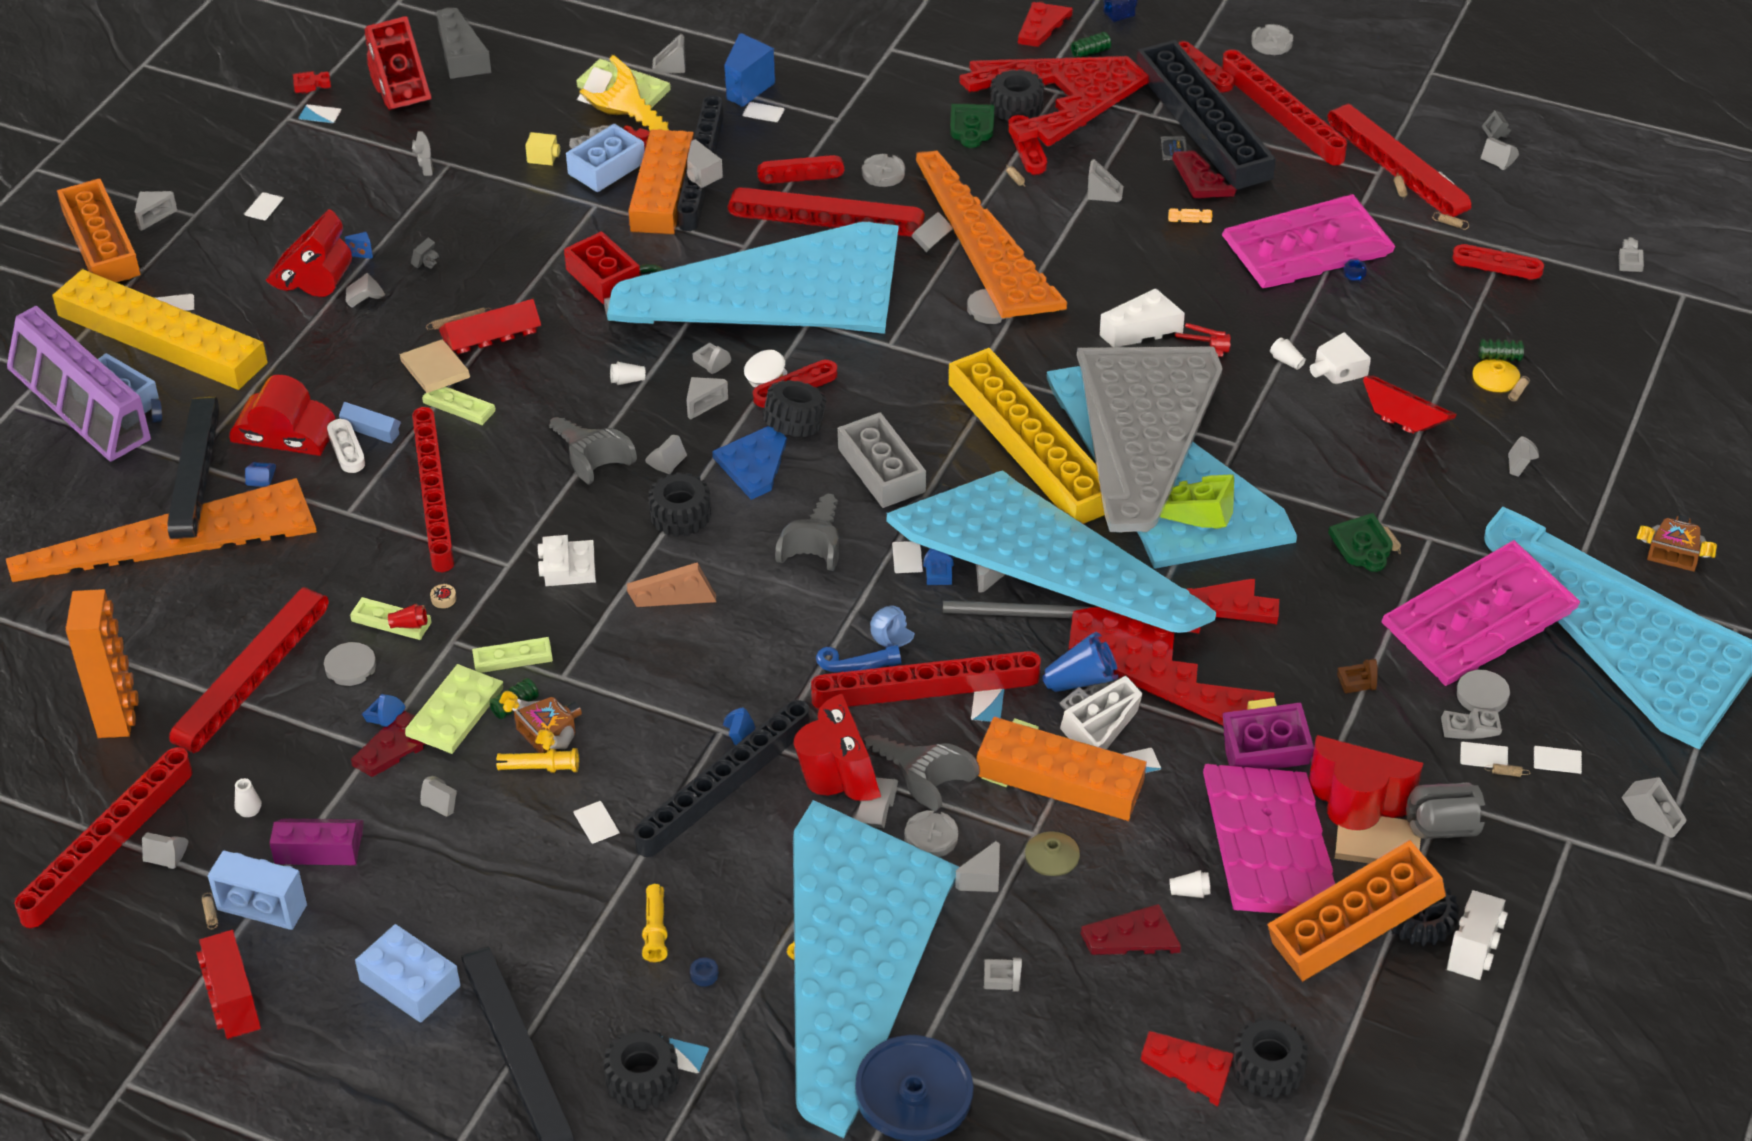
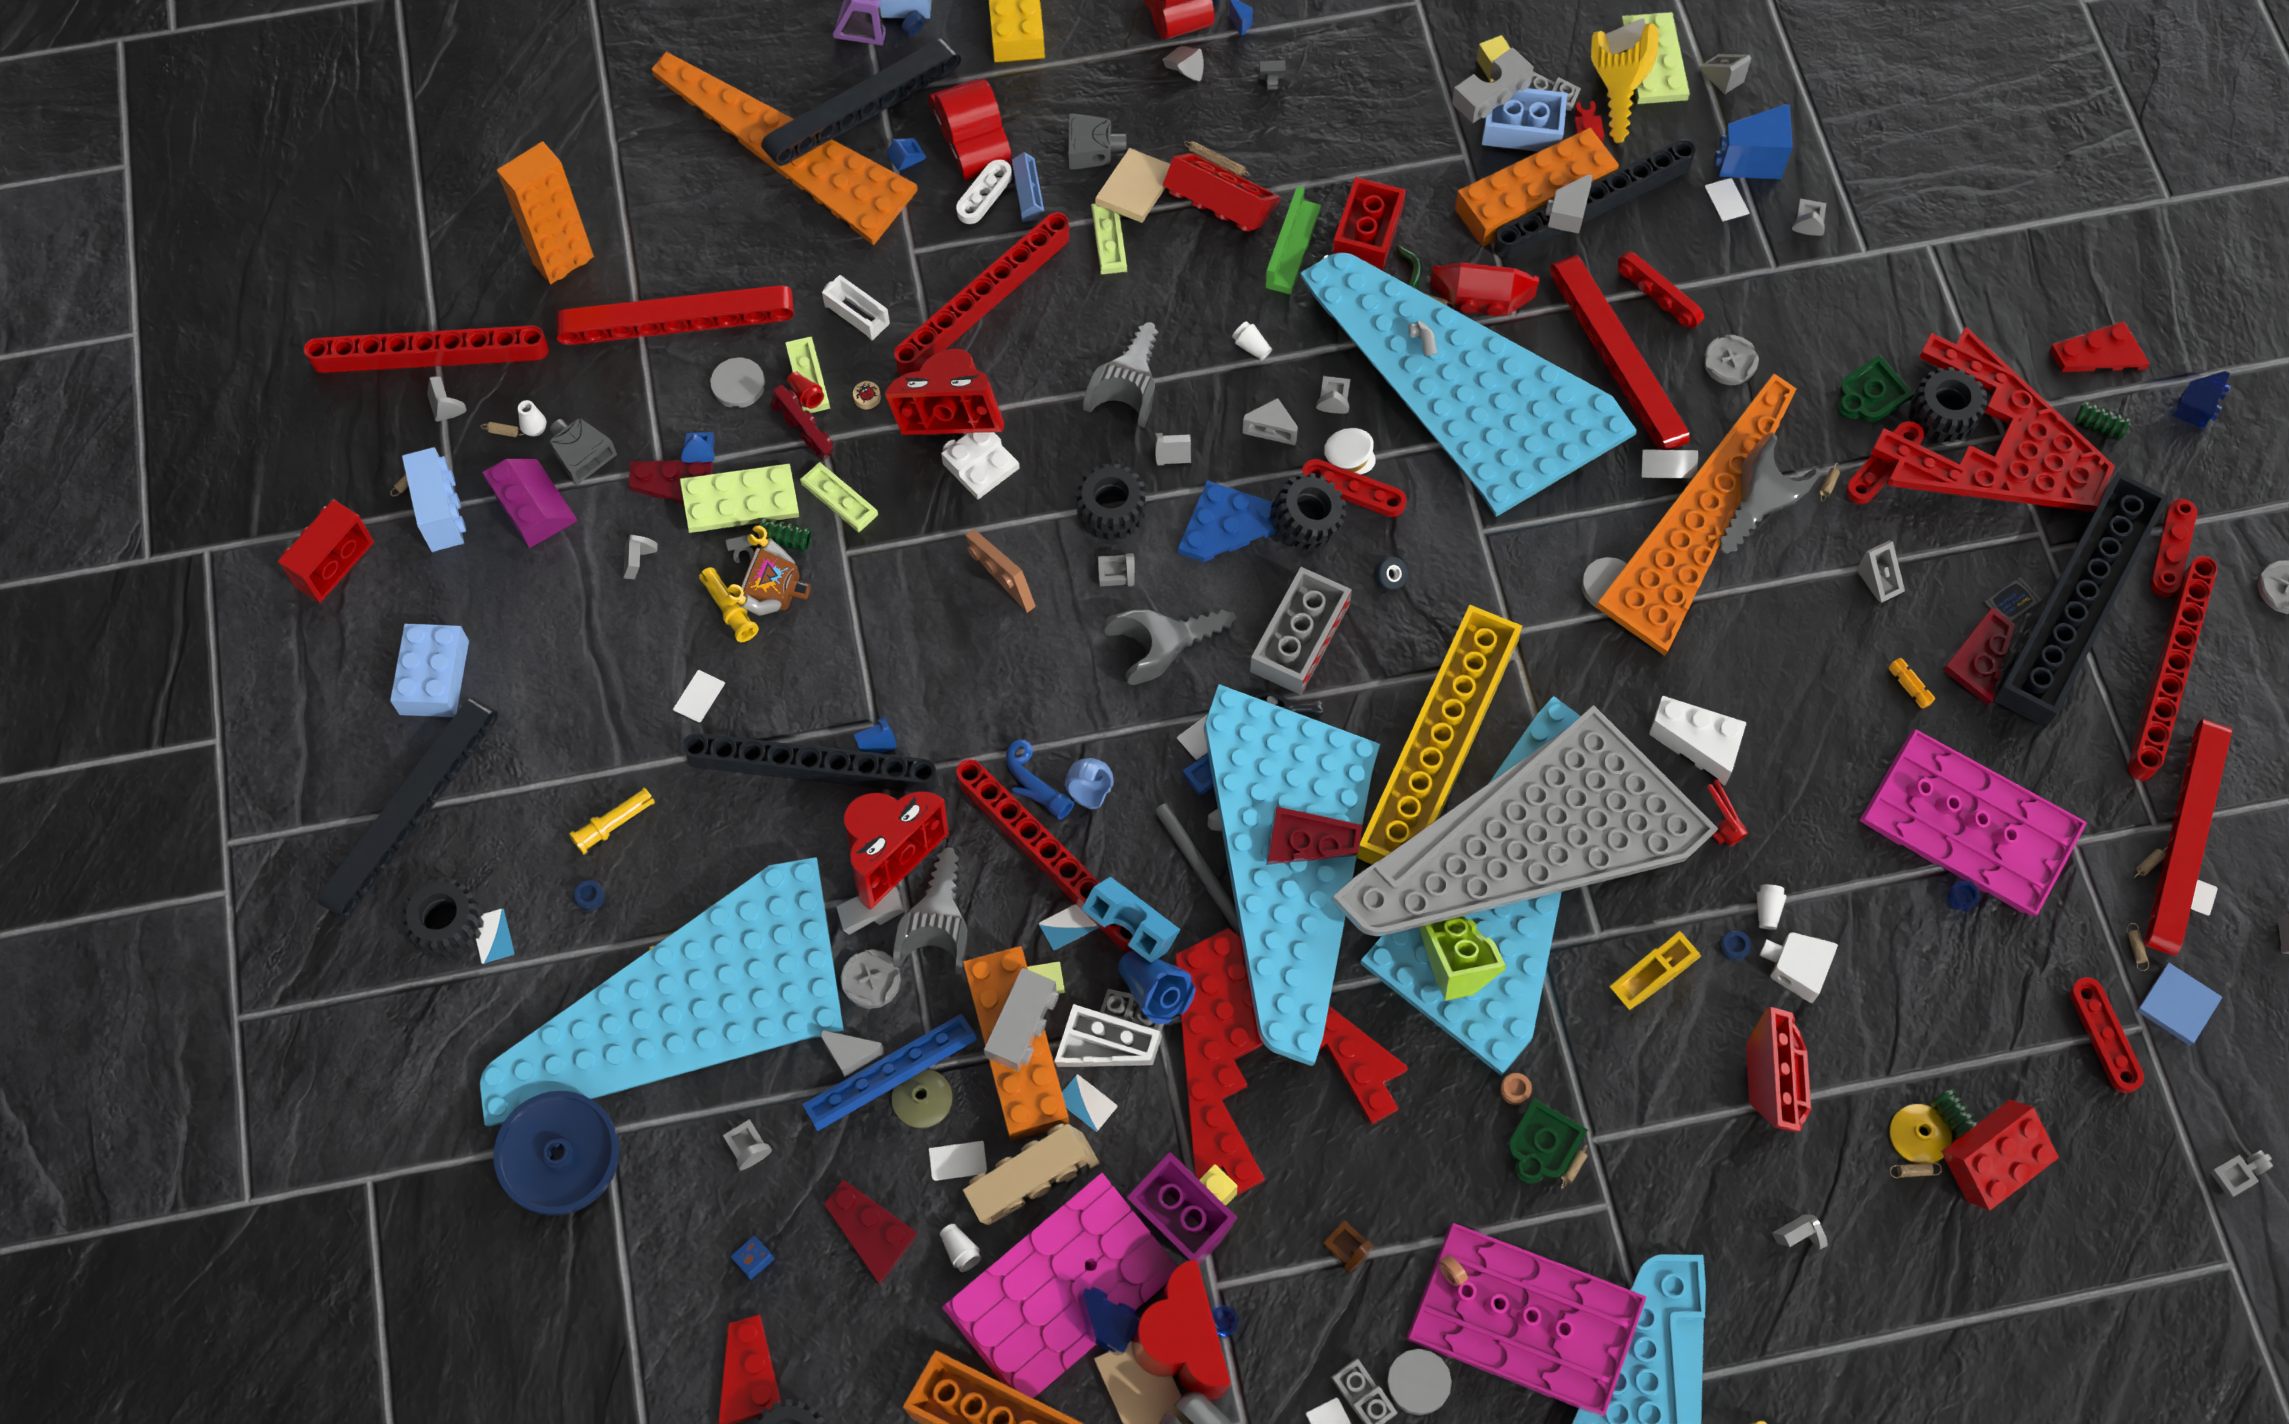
camera: 55 degrees right, 20 degrees up
(231, 827) = (502, 429): none -> tan piece
(305, 782) = (580, 448): none -> dark grey torso
(363, 561) = (842, 289): none -> white window
(371, 369) = (1092, 141): none -> dark grey torso
(424, 636) = (795, 417): none -> dark red wing
(495, 727) = (739, 543): none -> dark grey tile
(510, 535) = (945, 397): none -> red brick
(570, 315) = (1292, 243): none -> bright green fence
(574, 147) = (1479, 98): none -> light grey arch
(709, 240) = (1483, 287): none -> red wedge
(726, 275) = (1426, 335): none -> light grey arm
(734, 532) = (1116, 570): none -> light grey tile
(819, 83) = (1810, 218): none -> light grey tile
(877, 401) = (1381, 573): none -> black wheel
(995, 195) = (1763, 492): none -> dark grey animal
(1018, 856) = (889, 1072): none -> blue plate
(1028, 643) = (1115, 904): none -> dark azure arch
(1049, 524) = (1310, 837): none -> dark red wing
(1056, 736) = (1021, 1020): none -> light grey brick
(1098, 1014) = (752, 1257): none -> blue slope
(1119, 858) = (957, 1160): none -> white sticker
(1170, 809) = (1029, 1173): none -> tan wedge
(1286, 425) = (1655, 970): none -> yellow slope
(1299, 386) = (1735, 945): none -> dark blue tile
(1312, 538) = (1515, 1089): none -> nougat tile
(1318, 821) = (1107, 1323): none -> clear blue slope
(1421, 626) = (1452, 1271): none -> nougat tile
(1502, 224) = (2179, 1004): none -> medium blue tile
(1543, 338) = (2000, 1154): none -> red brick

